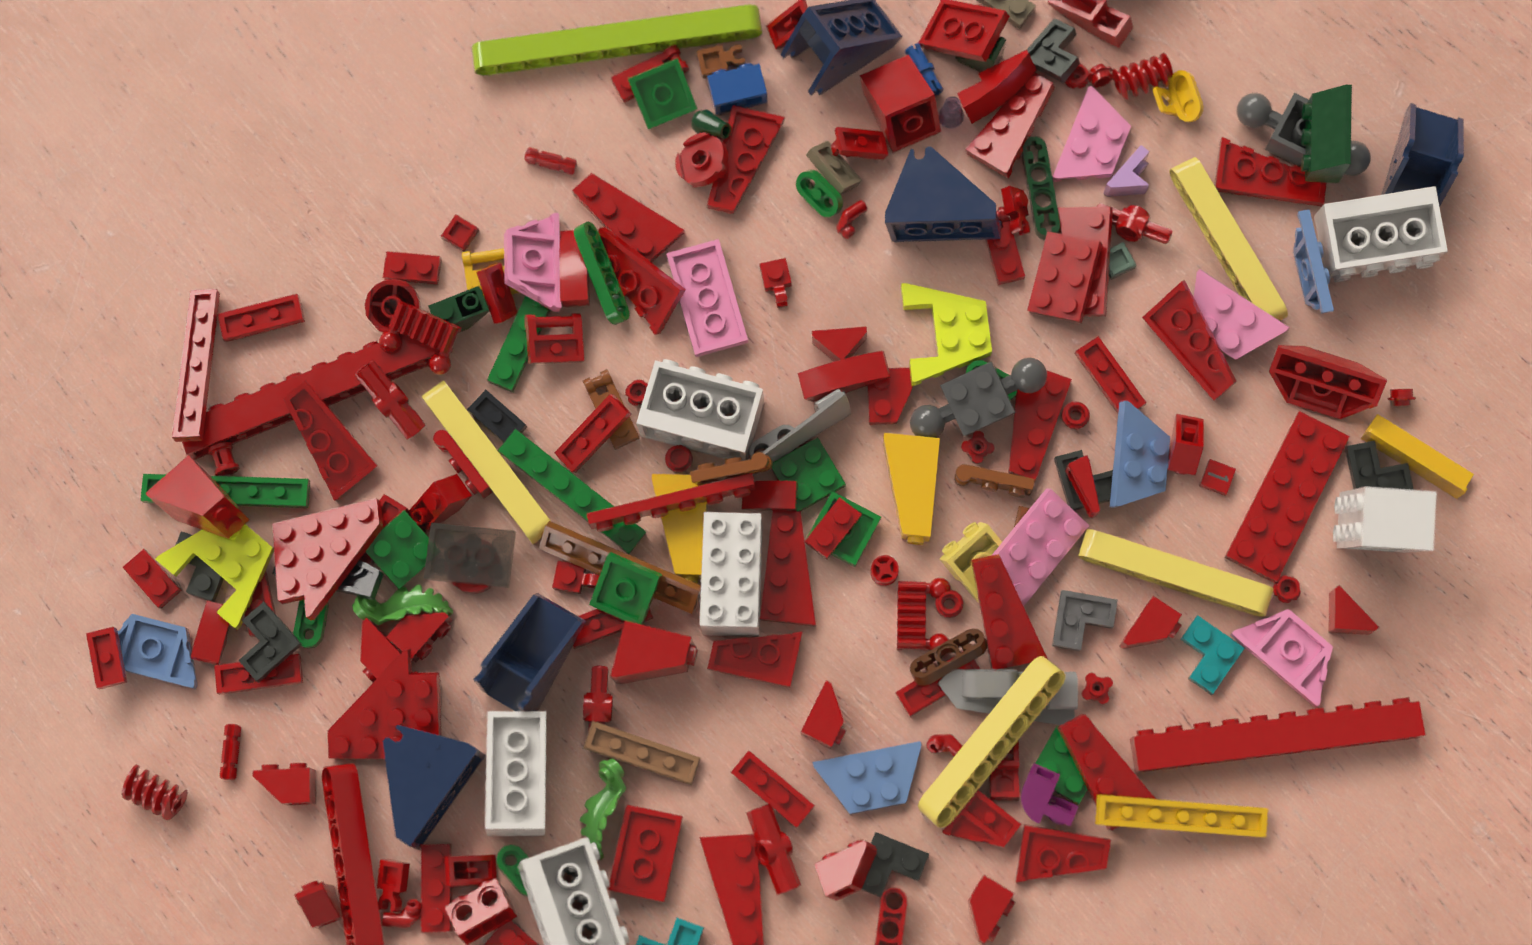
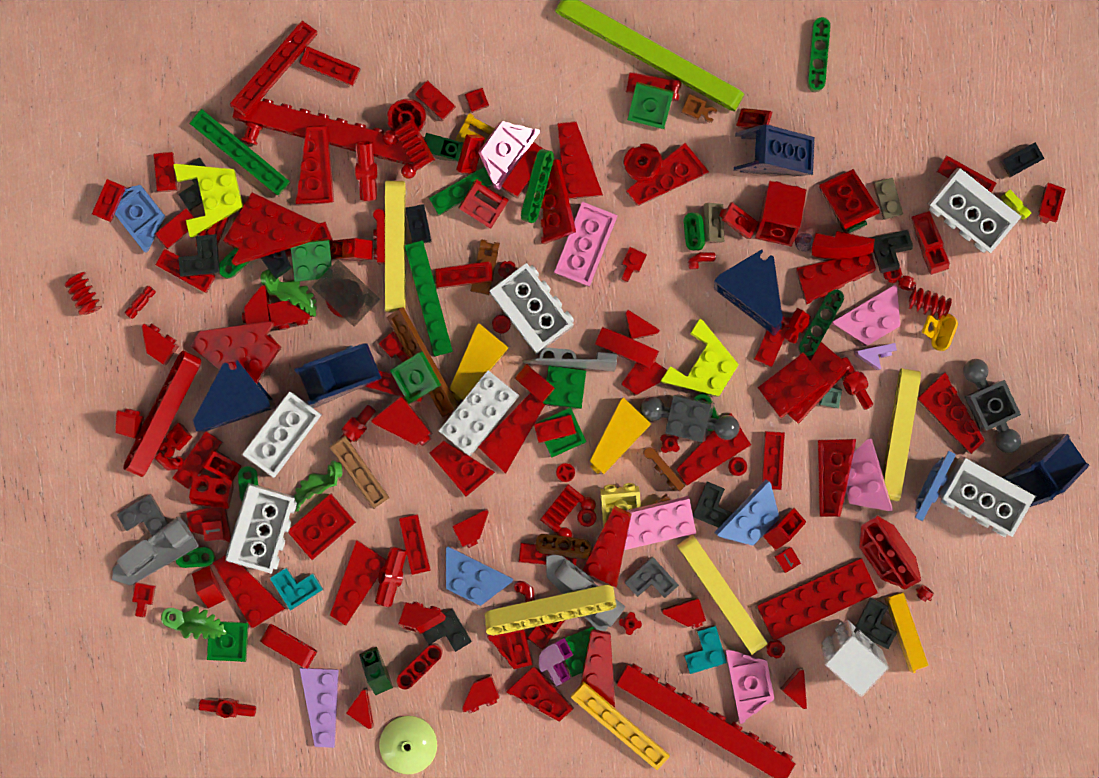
camera: 25 degrees right, 10 degrees up
(197, 500) = (221, 151): slope -> none
(550, 160) = (559, 96): red axle -> none
(682, 500) = (483, 352): red plate -> none
(707, 122) = (663, 143): dark green cone -> none
(733, 468) = (523, 355): dark orange plate -> none
(737, 87) = (695, 134): blue brick -> none
(925, 68) = (810, 203): blue pin -> none
(1082, 480) = (710, 508): red slope -> none
(1327, 135) = (1000, 420): dark green slope -> none

